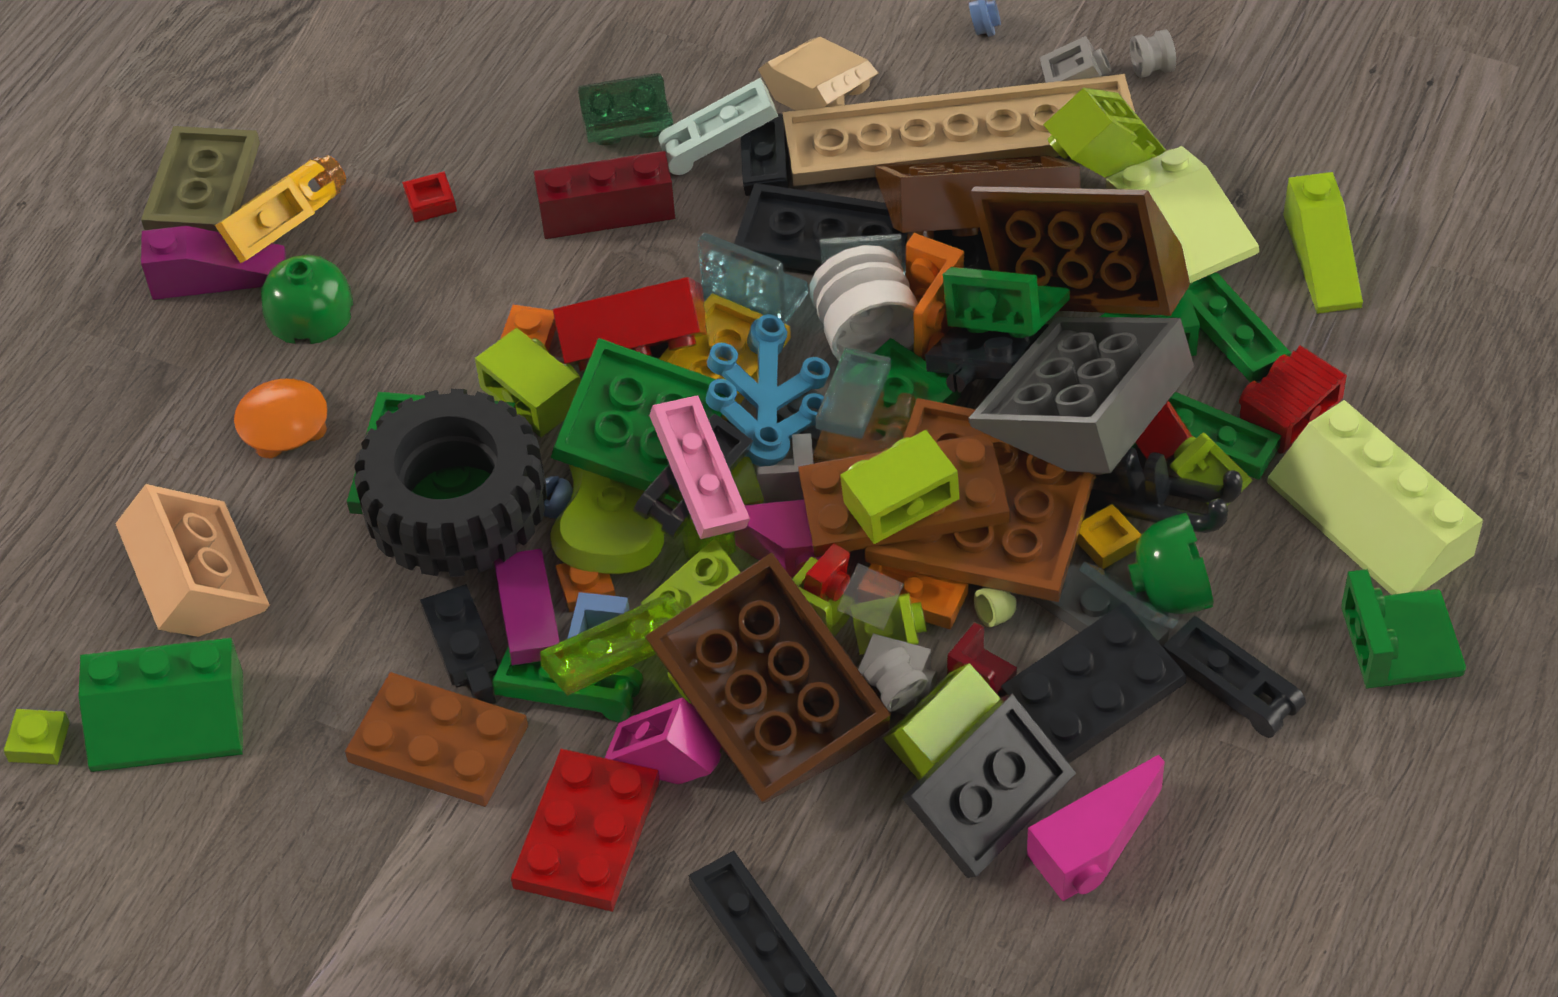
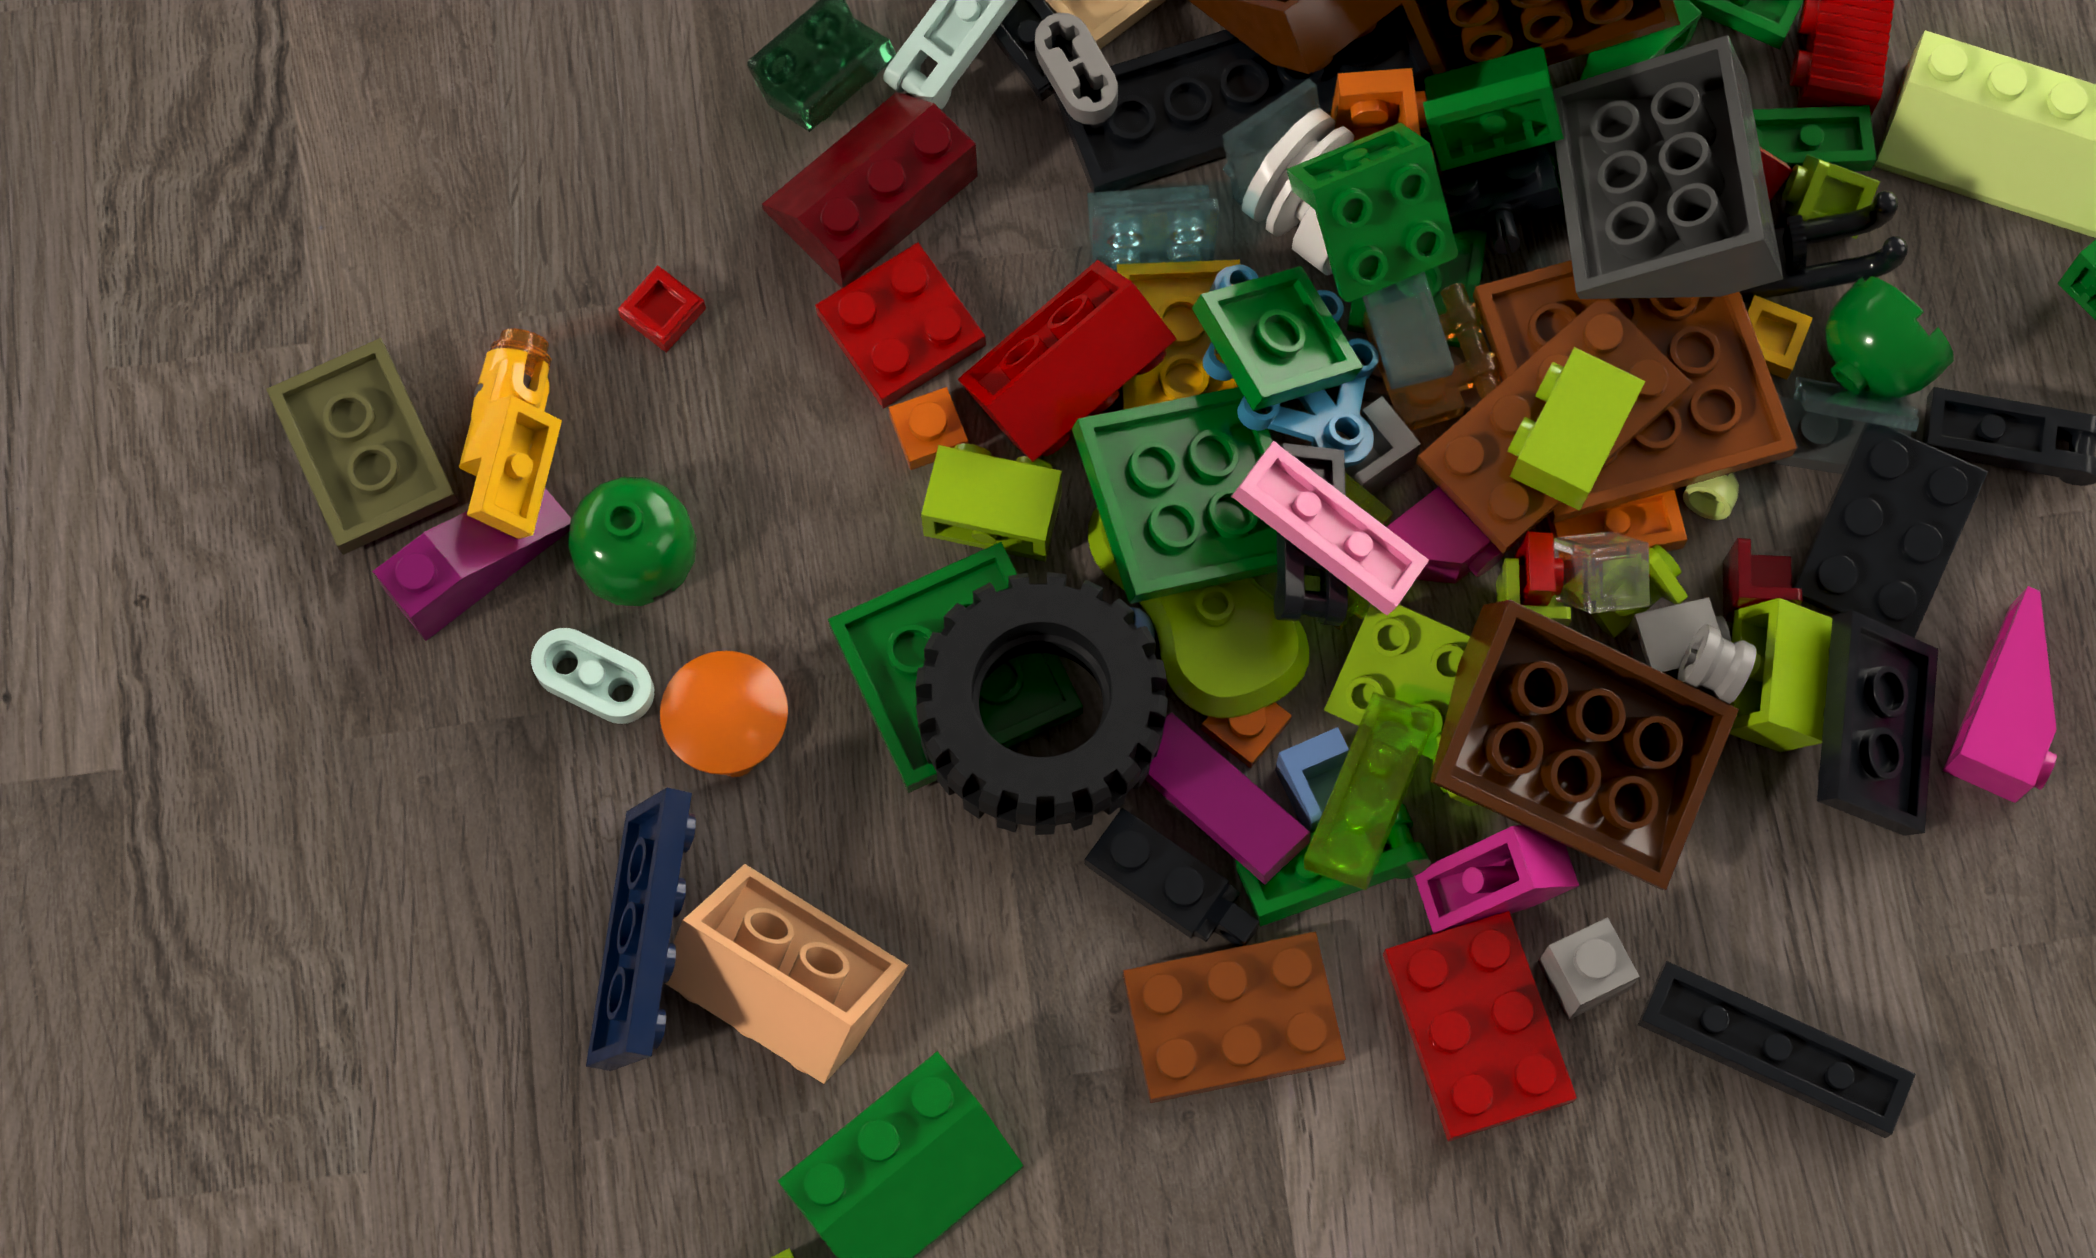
camera: 35 degrees left, 20 degrees up
(104, 504) = (639, 929): none -> dark blue plate
(223, 356) = (595, 677): none -> light aqua plate
(559, 267) = (900, 325): none -> red plate
(677, 826) = (1588, 968): none -> light grey brick
(760, 358) = (1277, 337): none -> green plate
(778, 176) = (1064, 74): none -> light grey beam
(869, 313) = (1378, 209): none -> green bracket

